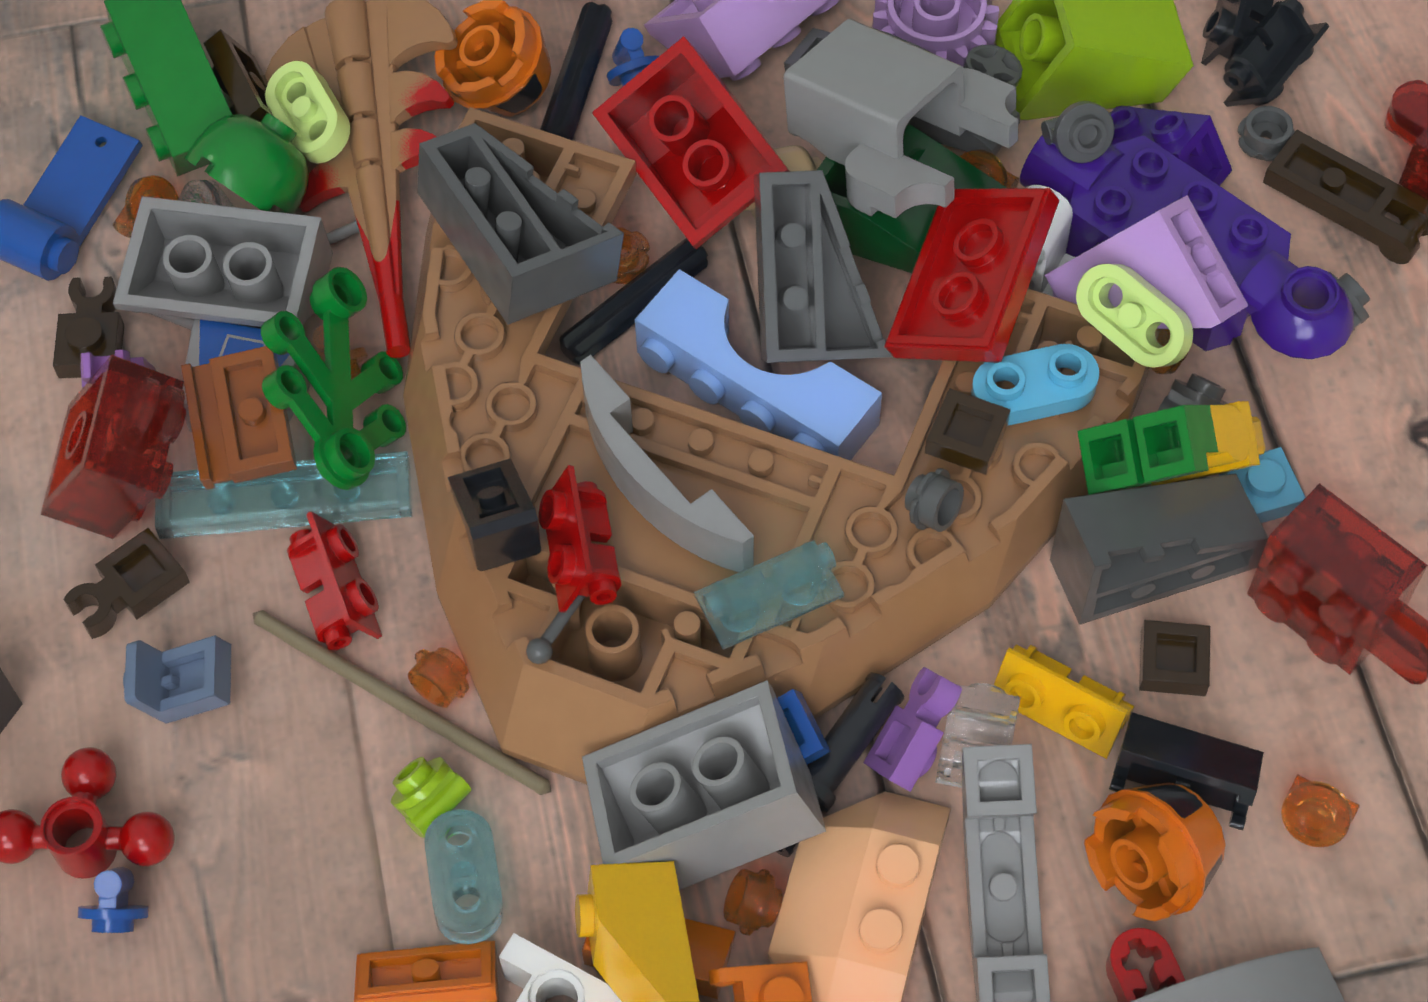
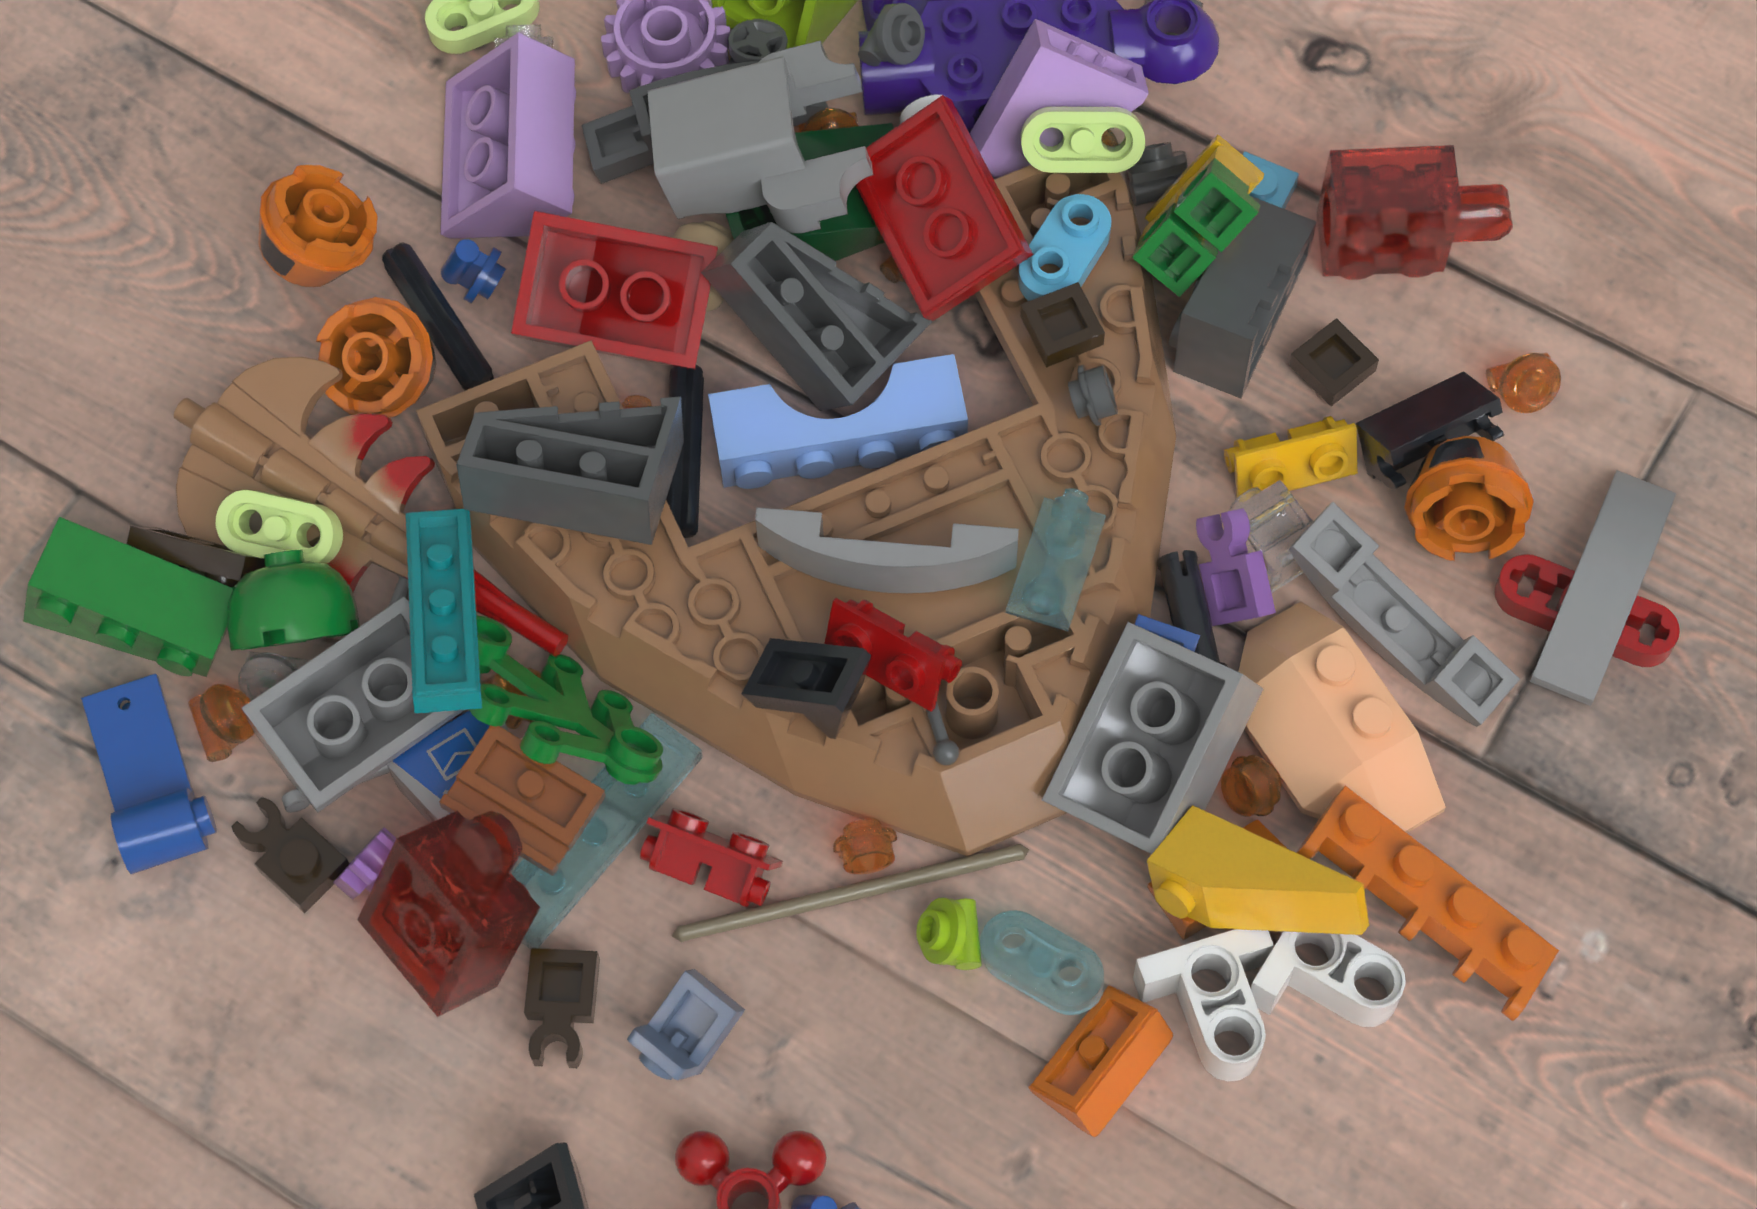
camera: 45 degrees left, 5 degrees up
(324, 246) = (442, 611): none -> teal tile

